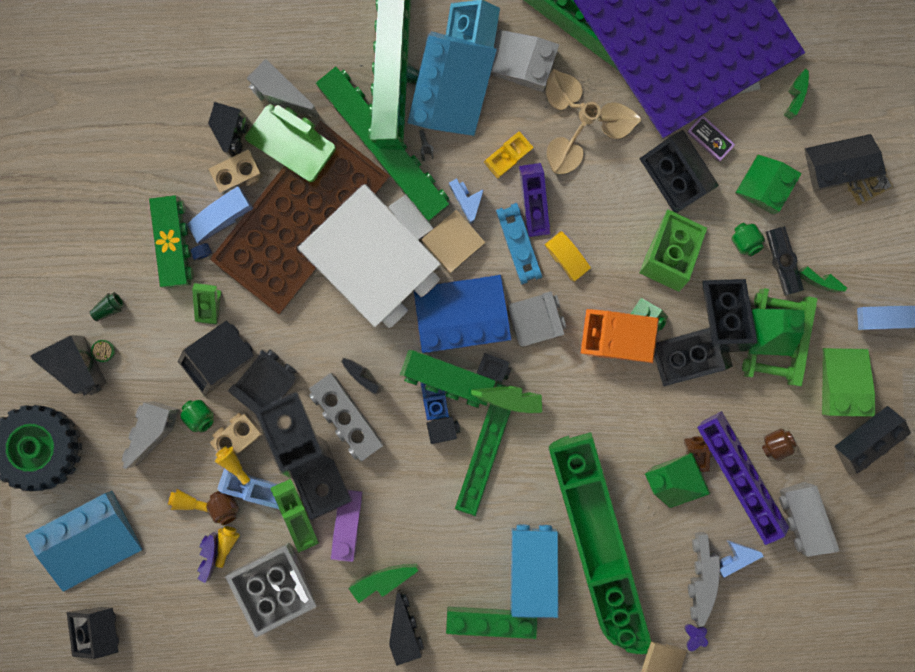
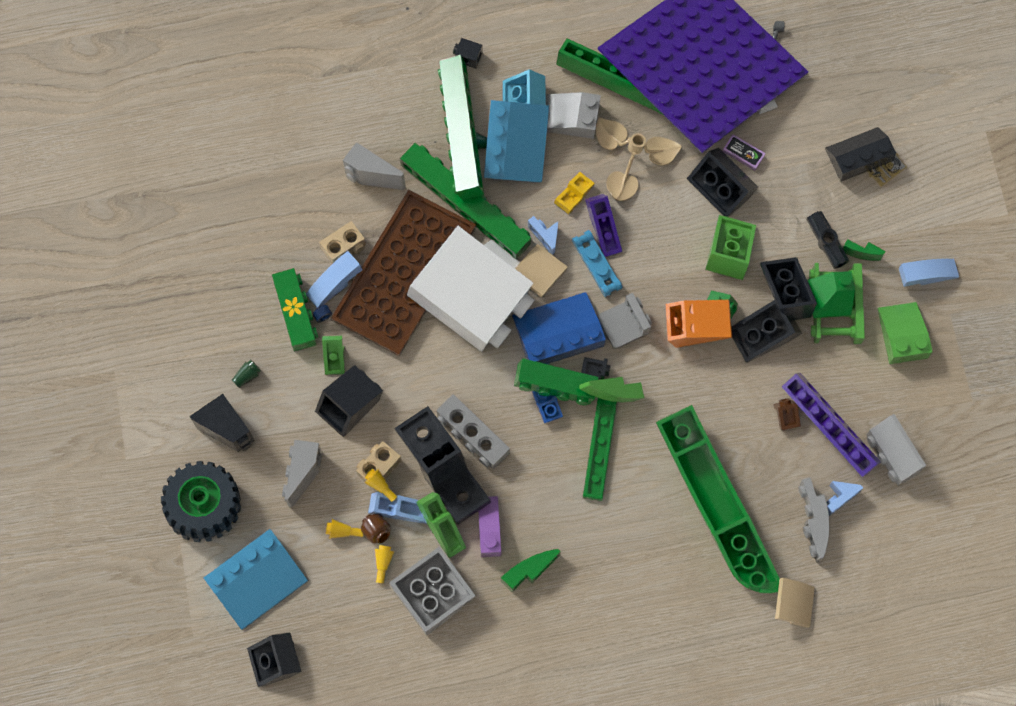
camera: 10 degrees left, 15 degrees down
(103, 351) = (247, 412): tile -> none
(197, 416) = (340, 452): green head -> none
(209, 551) = (369, 568): dark purple slope -> none
(228, 127) = (331, 204): black slope -> none
(264, 381) = (393, 411): black panel -> none
(290, 141) = (386, 208): bracket -> none
(357, 371) = (475, 389): black slope -> none
(403, 638) = (557, 617): black slope -> none
(426, 148) = (503, 198): dark grey hand -> none
(443, 430) = (559, 429): black brick -> none
(489, 623) = (634, 588): green brick -> none
(534, 571) = (663, 536): dark azure slope -> none
(568, 256) = (640, 264): yellow slope -> none
(677, 481) = (774, 437): green slope -> none
(697, 637) = (820, 572): dark purple piece -> none
(748, 239) = (792, 227): green head -> none
(768, 183) = (800, 180): green slope -> none
(779, 444) = (857, 393): reddish brown head -> none
(799, 90) = (809, 102): green slope -> none
(872, 440) = (935, 373): black slope -> none

